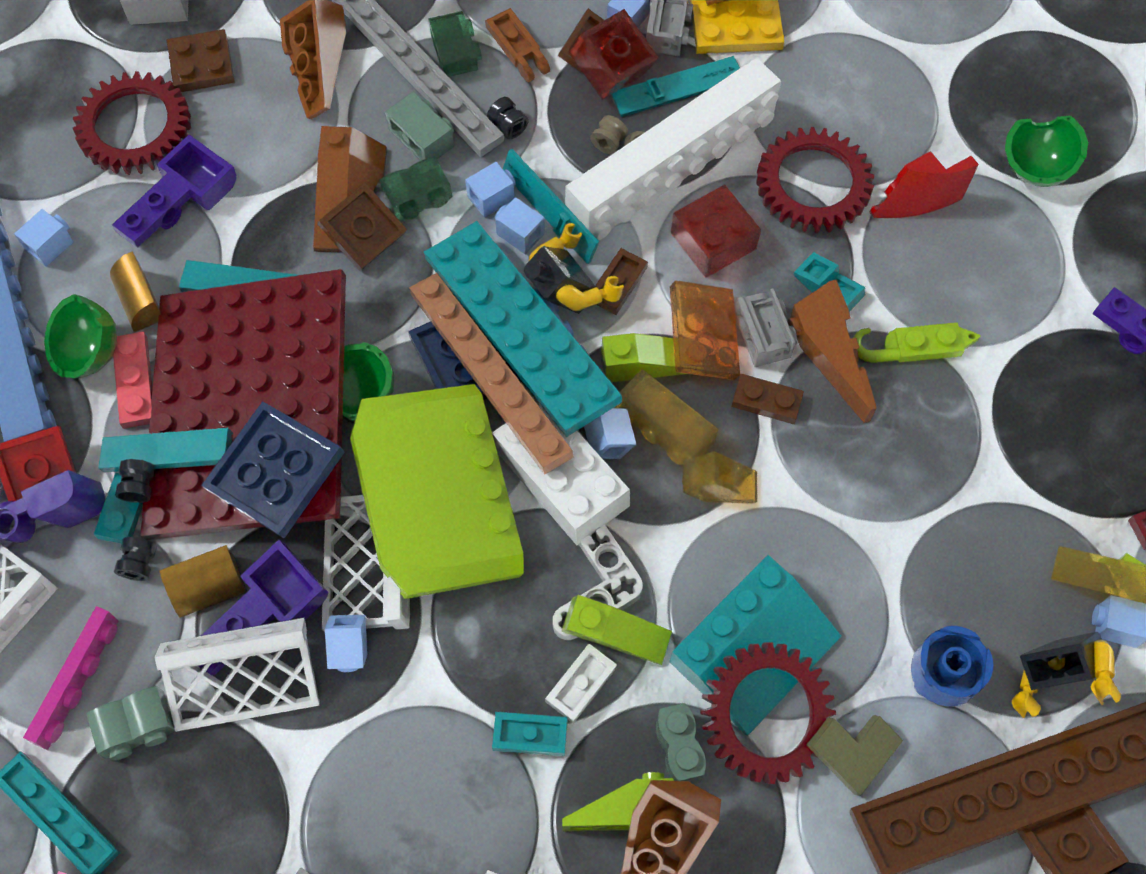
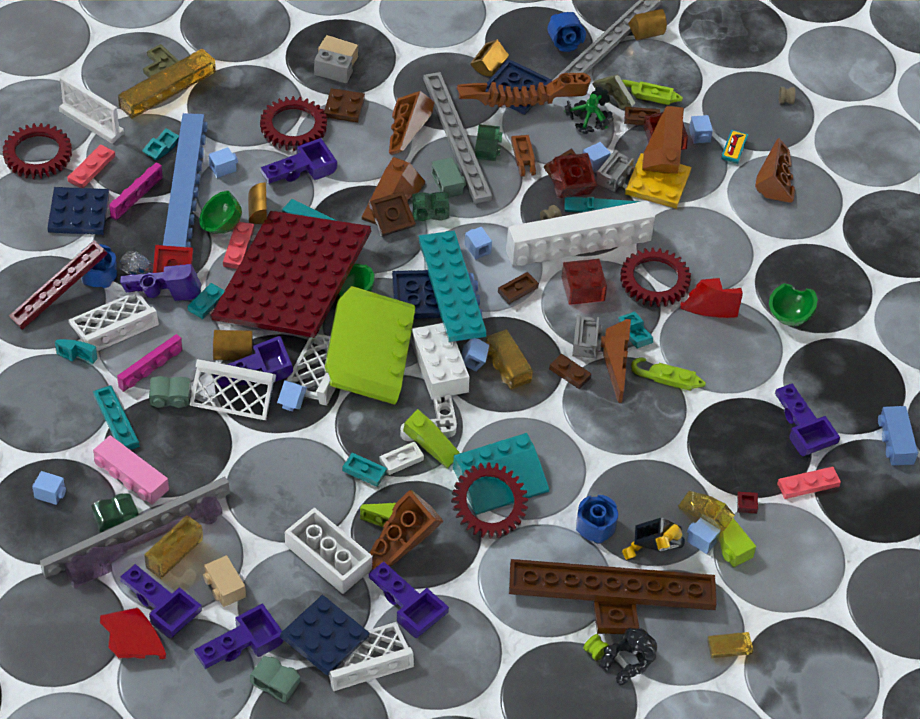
camera: 20 degrees right, 15 degrees down
(135, 481) = (220, 286): black wheel -> none
(136, 557) = (204, 322): black wheel -> none
(166, 448) = (241, 279): teal tile -> none
(273, 469) = (292, 301): dark blue plate -> none
(490, 189) = (471, 218): light blue brick -> none
(492, 374) = (424, 301): nougat plate -> none
(504, 114) = (498, 188): black wheel -> none
(549, 205) = (499, 239): teal piece -> none
(561, 277) = (486, 273): torso -> none
(629, 353) = (518, 327): lime slope -> none
(677, 738) = (439, 495): sand green brick -> none
(704, 330) = (552, 326): clear orange plate -> none
(719, 479) = (522, 396): clear yellow slope -> none
(857, 759) = (522, 540): olive tile -> none

